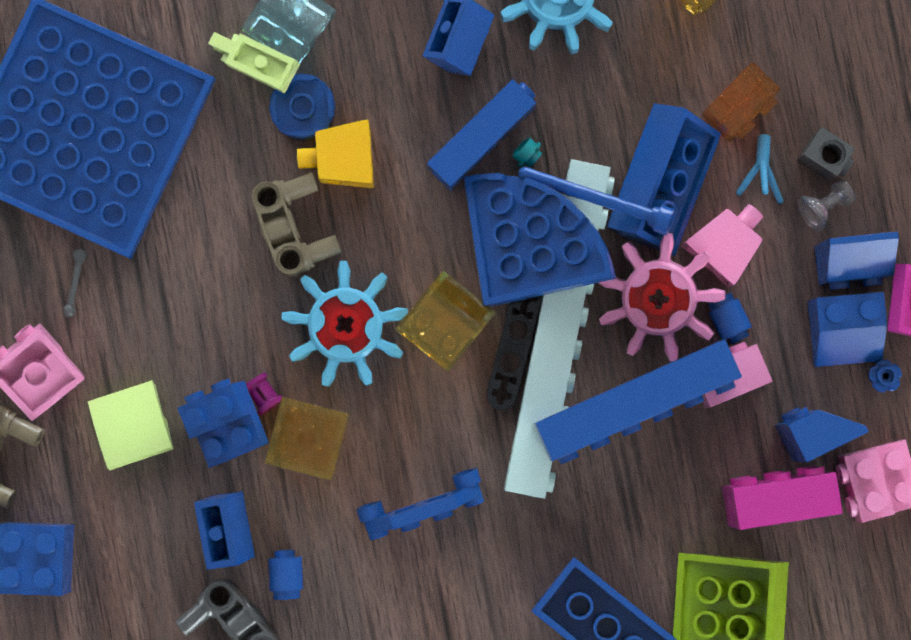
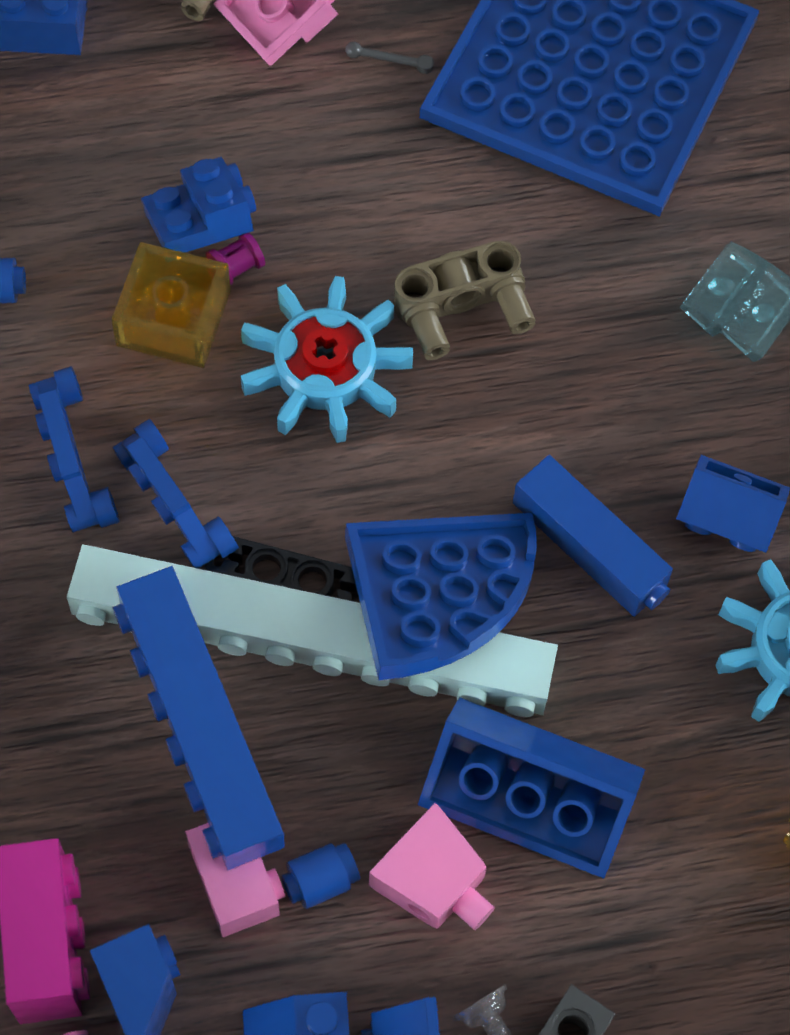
camera: 90 degrees right, 20 degrees down
(130, 425) = (202, 111): yellowish green slope -> none
(224, 530) = (56, 205): blue brick -> none
(256, 60) = (685, 257): yellowish green hinge -> none
(303, 108) = (626, 318): blue tile -> none
(341, 155) = (560, 360): yellow torso -> none
(445, 321) = (324, 472): clear yellow slope -> none
(447, 447) = (139, 456): none -> blue plate
(527, 152) = (568, 598): teal plate -> none
(658, 218) = (467, 747): blue piece -> none
(675, 283) = (354, 768): bright pink gear -> none
(741, 102) = (650, 903): clear orange brick -> none
(766, 174) = (559, 935): dark azure plant -> none

